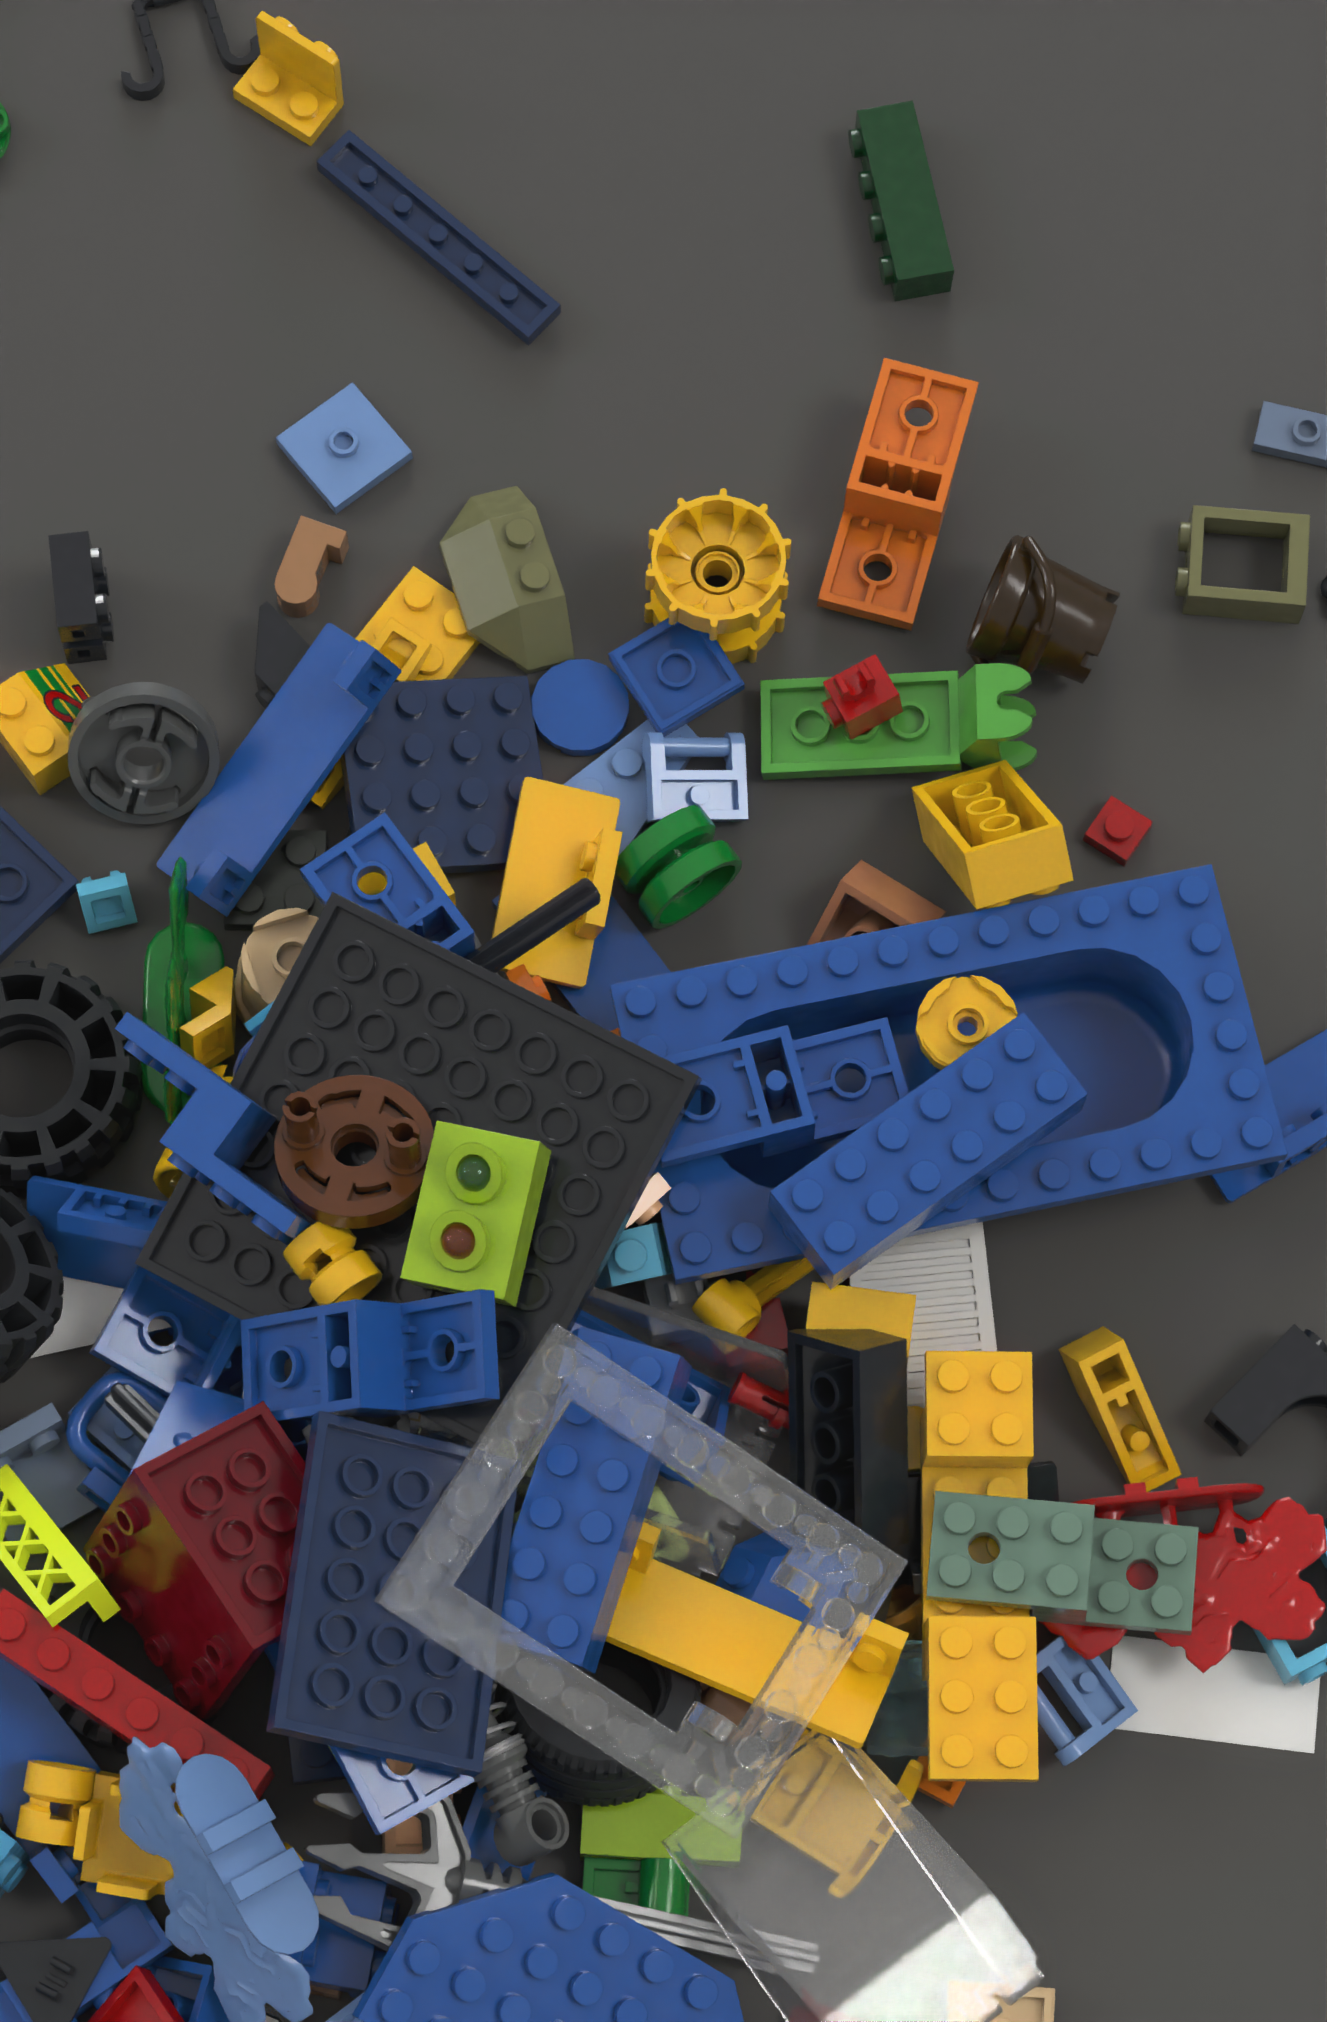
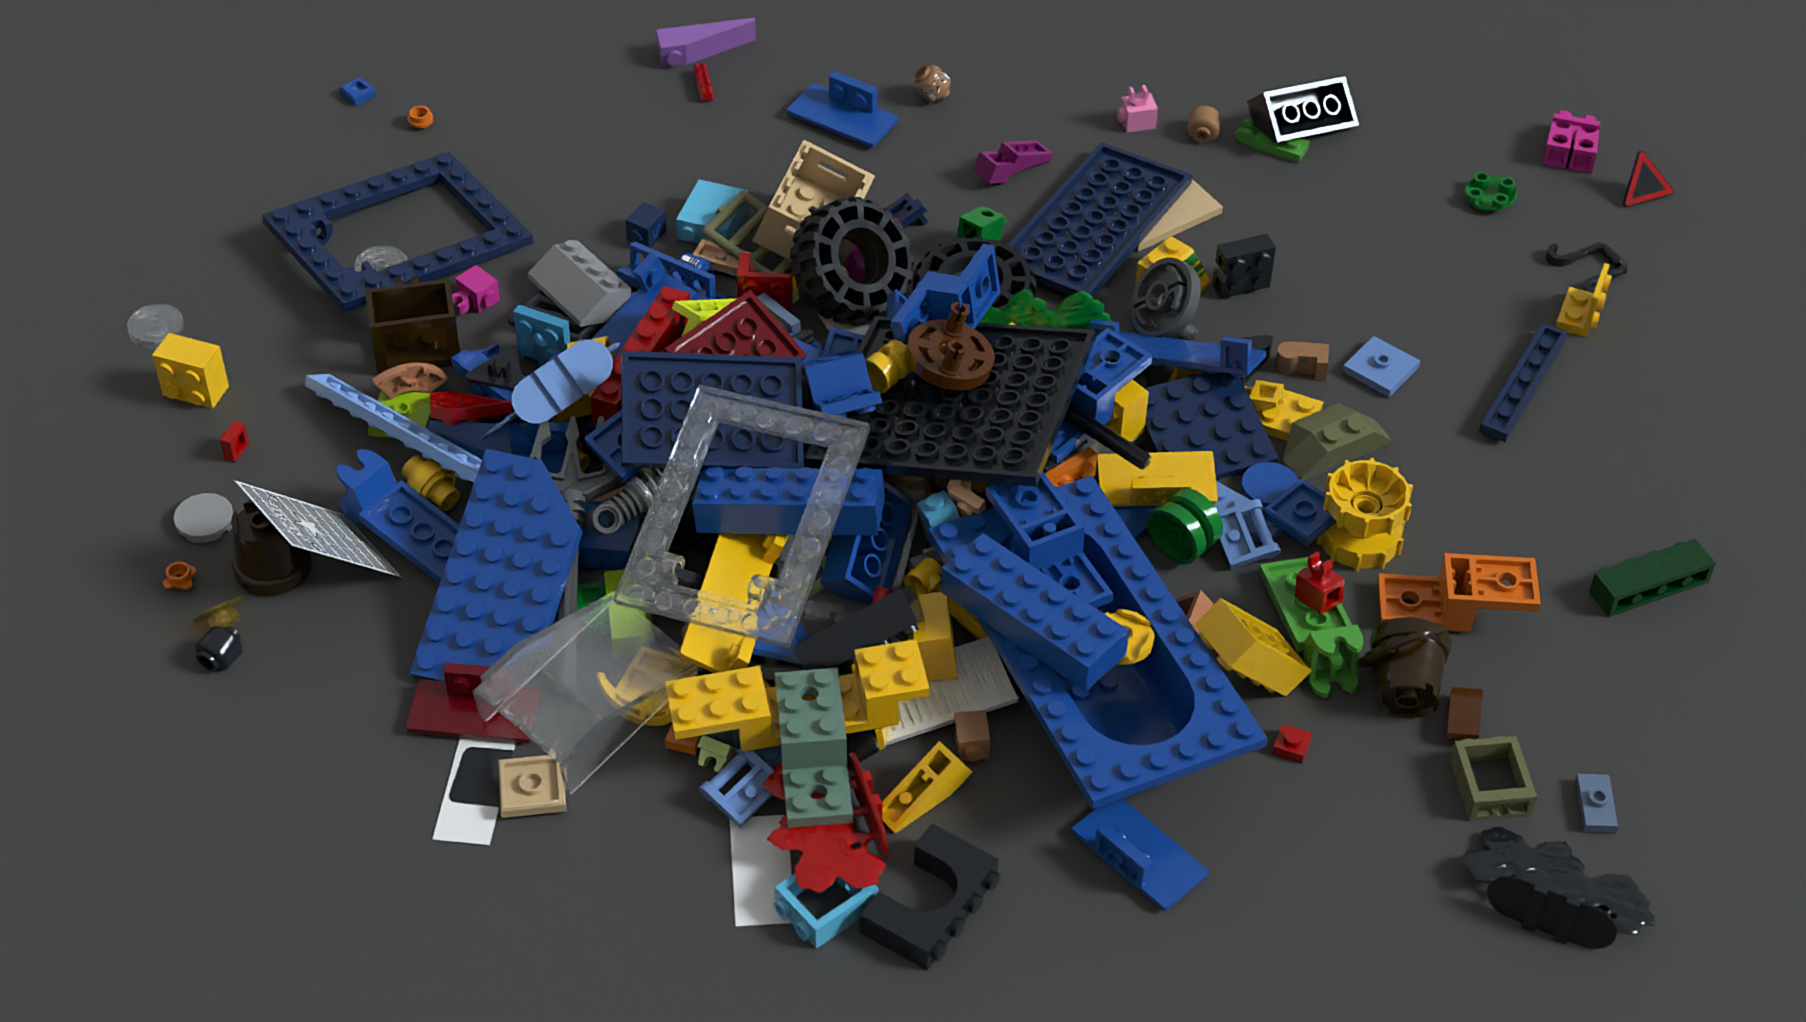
camera: 80 degrees right, 25 degrees down
(476, 1212) = (928, 403): lime piece -> none
(1031, 1311) = (971, 735): none -> medium nougat brick
(1118, 562) = (1464, 713): none -> reddish brown slope

